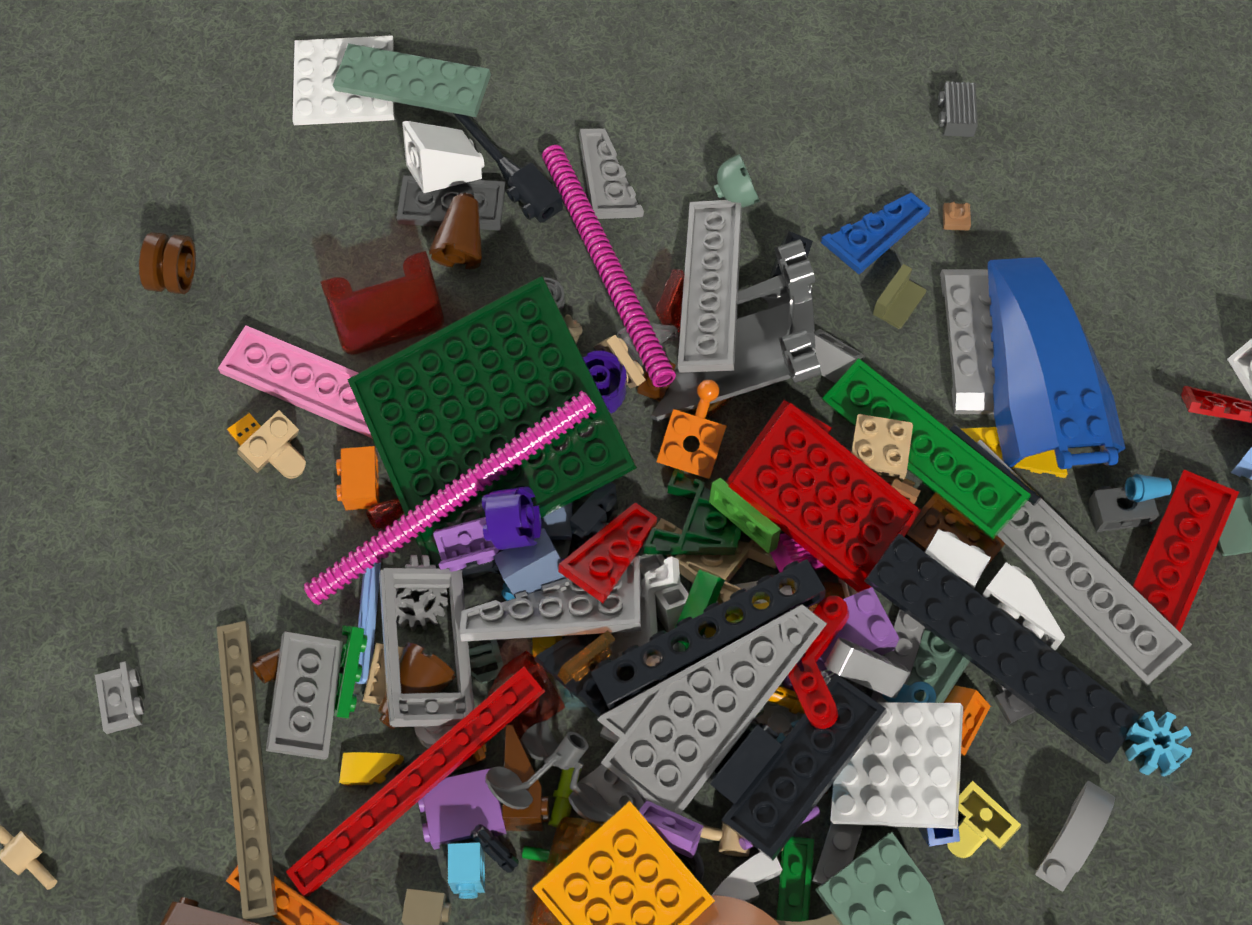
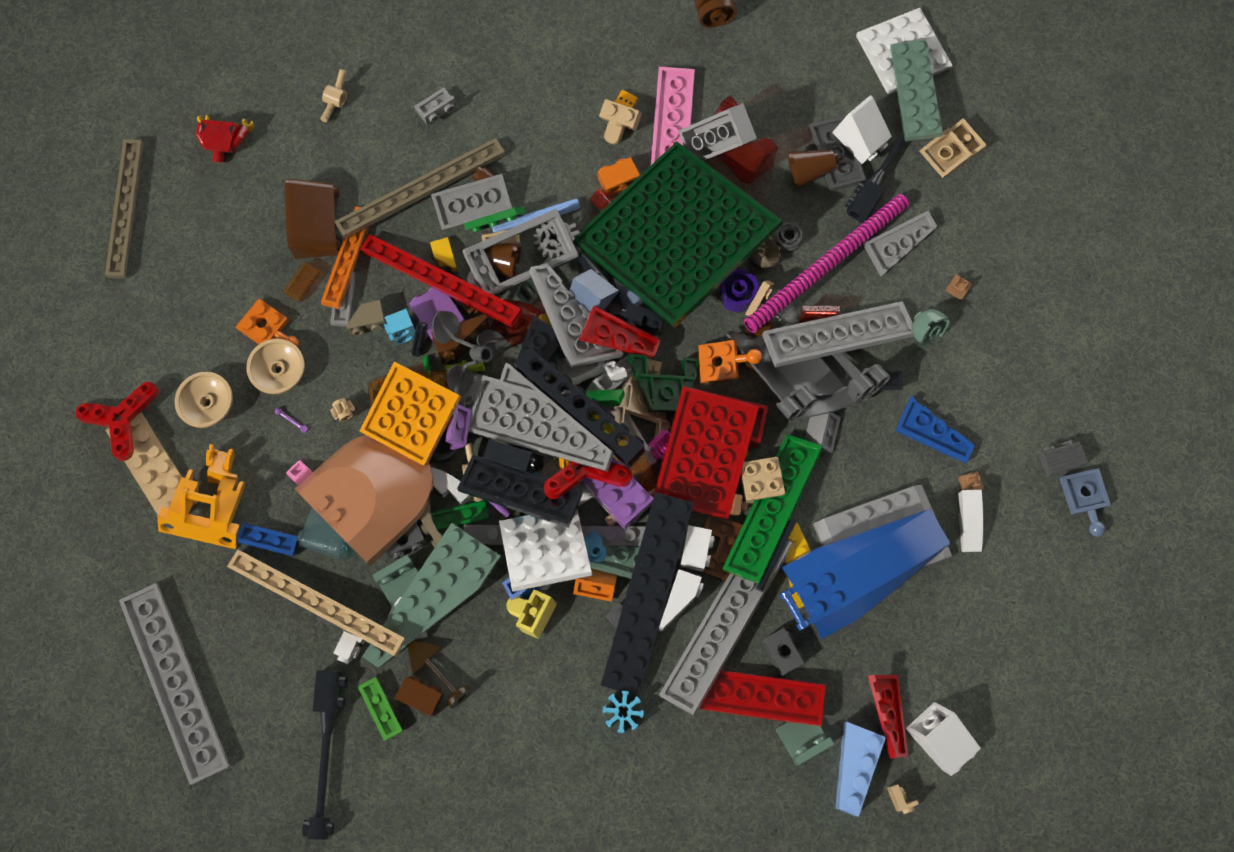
camera: 70 degrees right, 10 degrees up
(369, 315) = (718, 133): none -> light grey brick
(448, 499) = (619, 231): dark pink piece -> none
(463, 545) = (591, 250): medium lavender bracket -> none
(511, 71) = (953, 149): none -> tan slope
(511, 518) = (611, 267): dark purple brick -> none
(597, 651) = (548, 347): clear orange plate -> none
(693, 137) = (958, 287): none -> medium nougat tile
(744, 516) = (667, 419): bright green plate -> none
(867, 667) = (597, 510): light grey beam -> none
(899, 299) = (886, 462): olive panel -> none
(1006, 231) = (971, 520): none -> white slope
(1021, 97) = (1096, 500): none -> sand blue plate
(1077, 837) = (545, 673): light grey arch -> none
(1146, 487) = (797, 660): dark azure cone -> none

